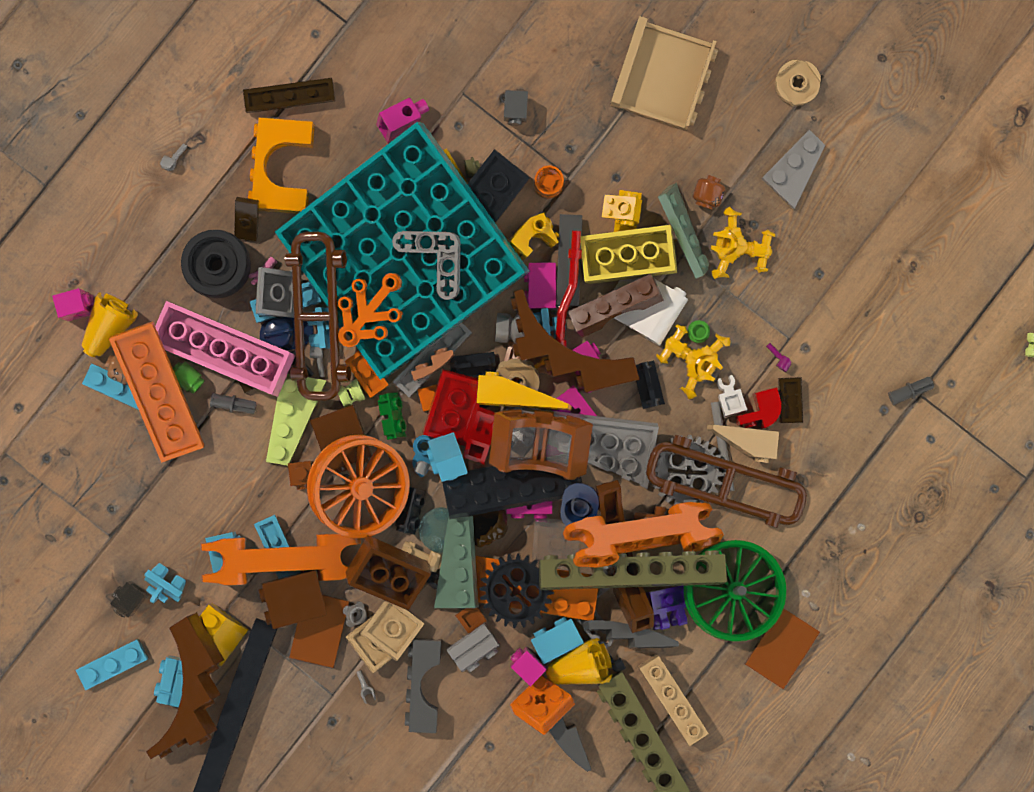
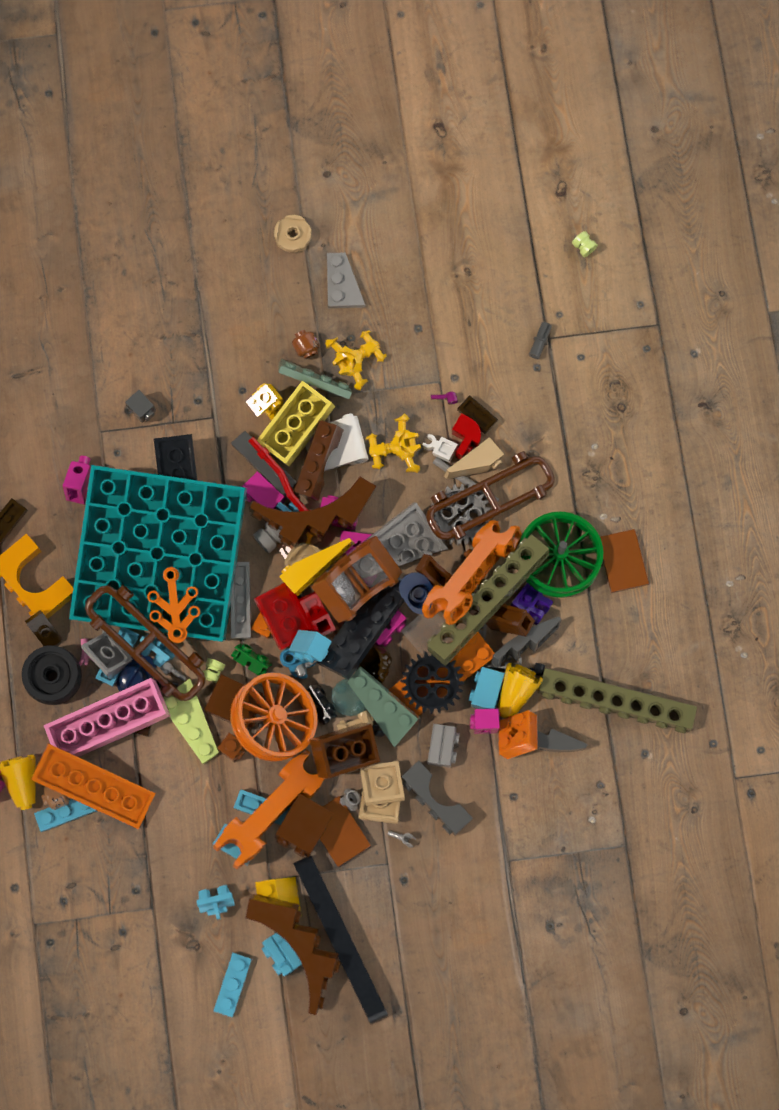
camera: 45 degrees left, 10 degrees down
(128, 599) = (202, 933): clear smoke brick -> none
(188, 377) = (104, 760): bright green brick -> none
(233, 403) = (147, 749): dark grey axle -> none
(366, 375) = (211, 649): orange plate -> none
(439, 360) = (246, 596): nougat slope -> none
(442, 255) = (185, 526): light grey beam -> none
(471, 167) = (150, 467): olive plate -> none
(471, 618) = (422, 730): dark orange plate -> none
(473, 364) = (269, 579): black hinge -> none
(535, 227) = (226, 462): yellow tile -> none
(548, 182) = (205, 430): orange wheel -> none
(649, 385) = (387, 489): black hinge -> none
(664, 75) = (210, 305): tan panel -> none
(673, 699) = (591, 654): tan brick -> none
(698, 331) = (382, 429): bright green plate -> none

